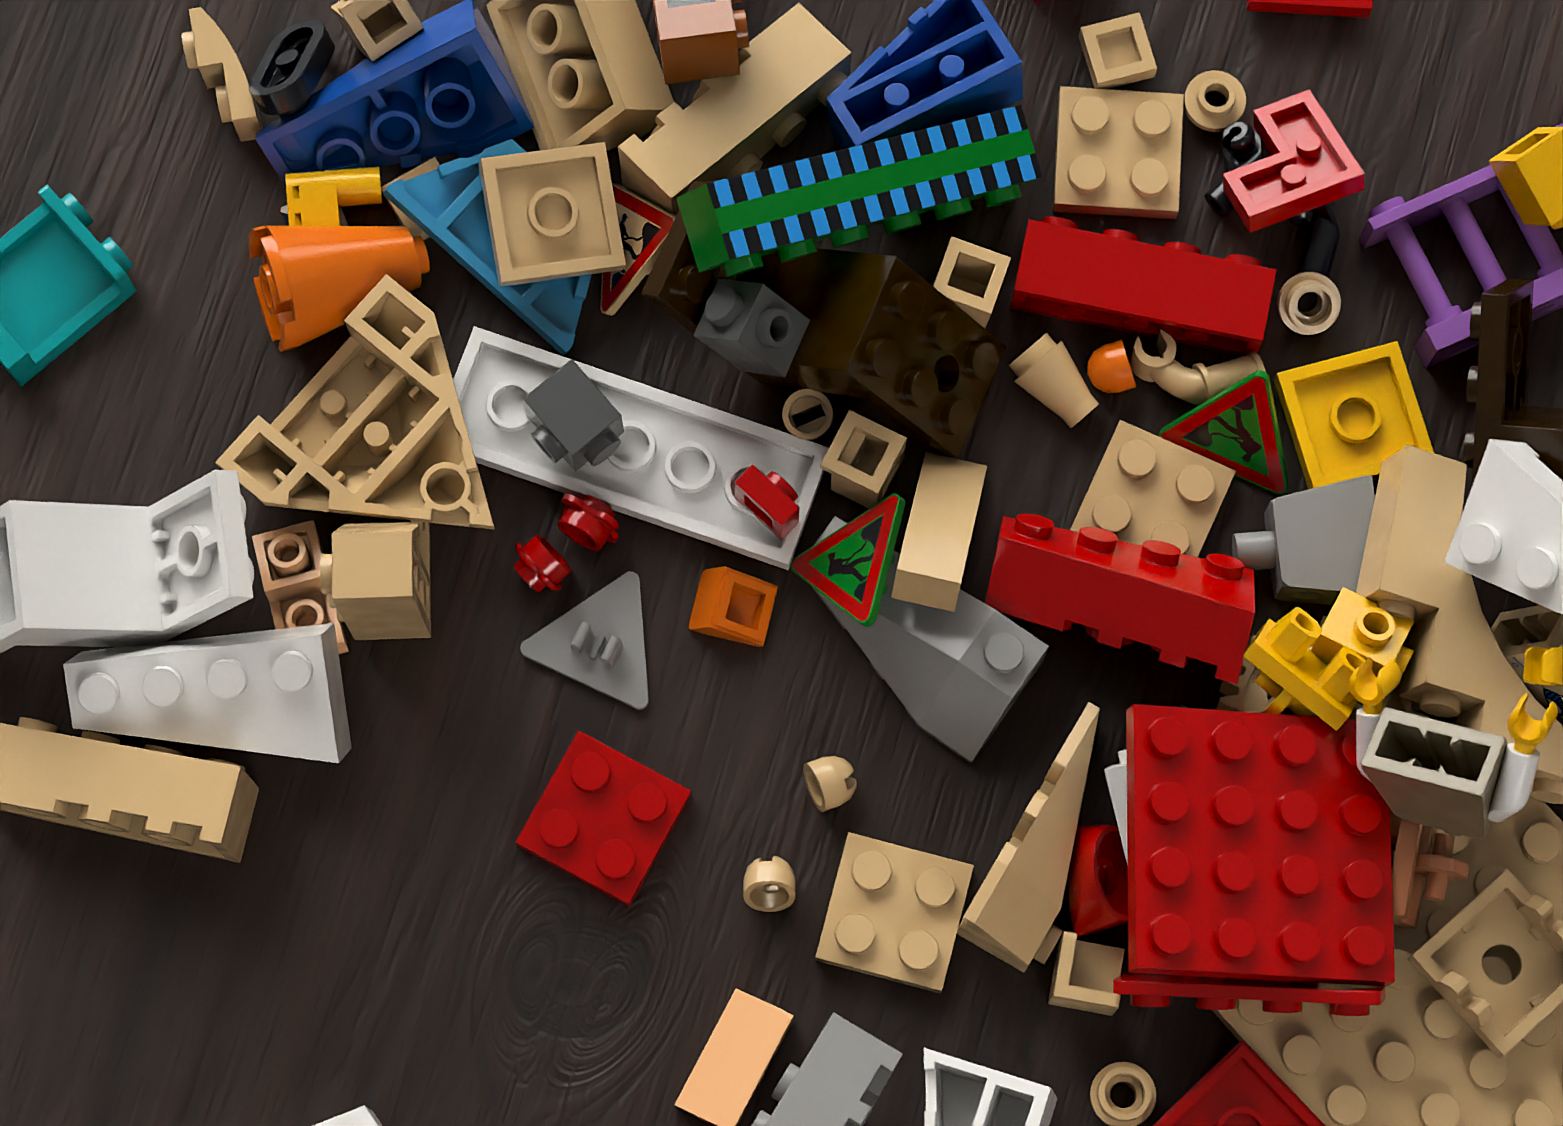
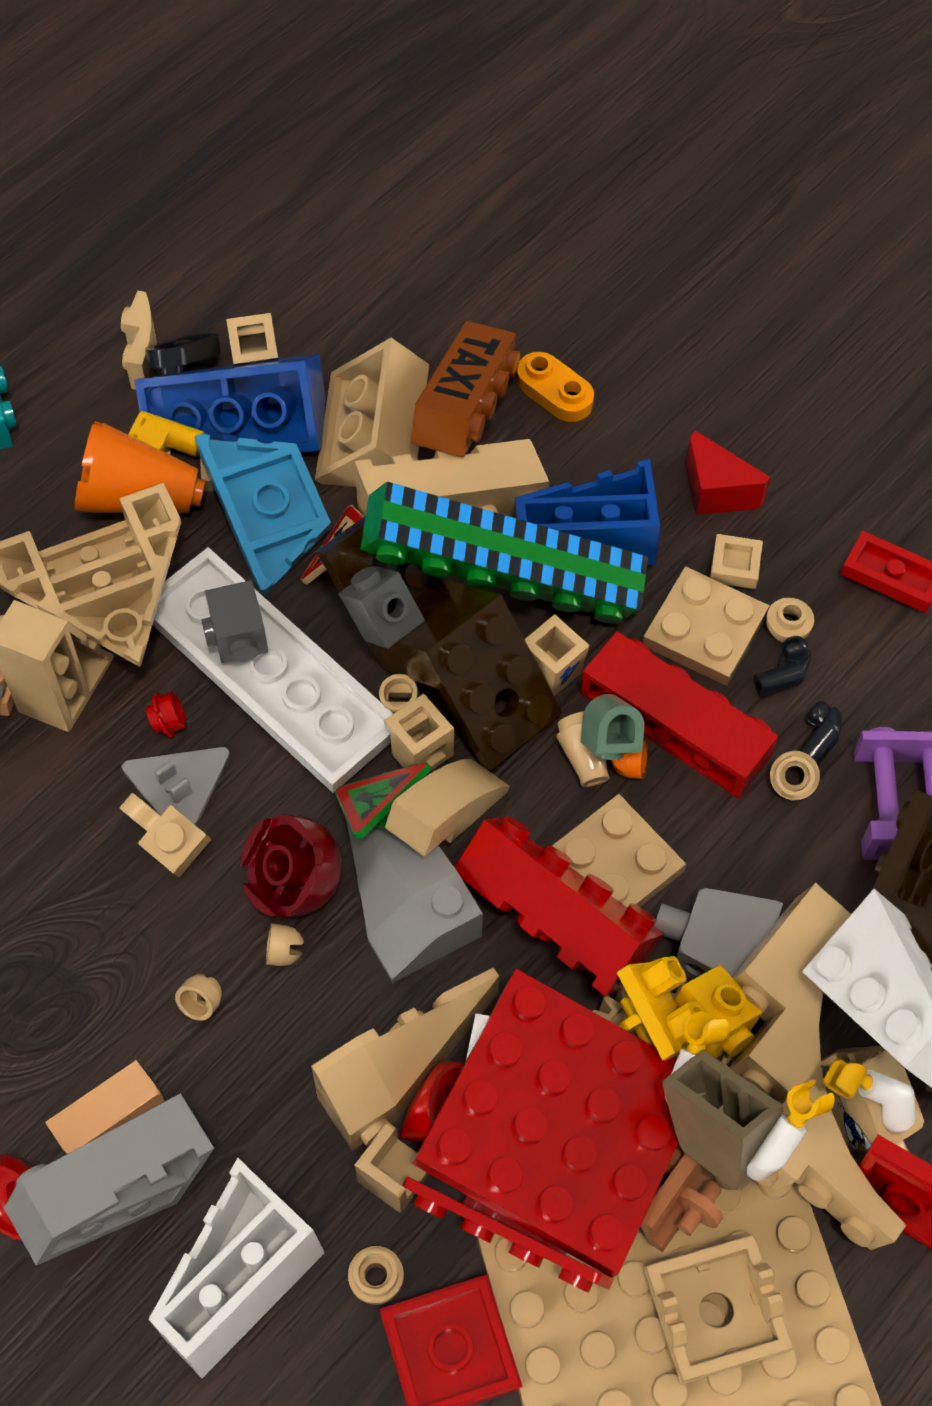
camera: 25 degrees right, 15 degrees down
(551, 214) = (294, 495): tan plate -> none
(588, 521) = (212, 699): red plate -> none
(603, 818) = (112, 900): red plate -> none
(632, 713) = (169, 836): none -> tan plate
(733, 606) = (282, 795): orange slope -> none
(769, 500) = (338, 731): red plate -> none
(798, 689) = (291, 865): none -> dark red cylinder
(894, 912) = (271, 1059): tan plate -> none
(1086, 351) = (612, 728): none -> sand green plate
(1190, 384) = (689, 795): tan piece -> none
(1238, 432) = (699, 835): piece -> none
(1305, 165) = (833, 681): plate -> none
(1351, 413) = (789, 855): yellow plate -> none

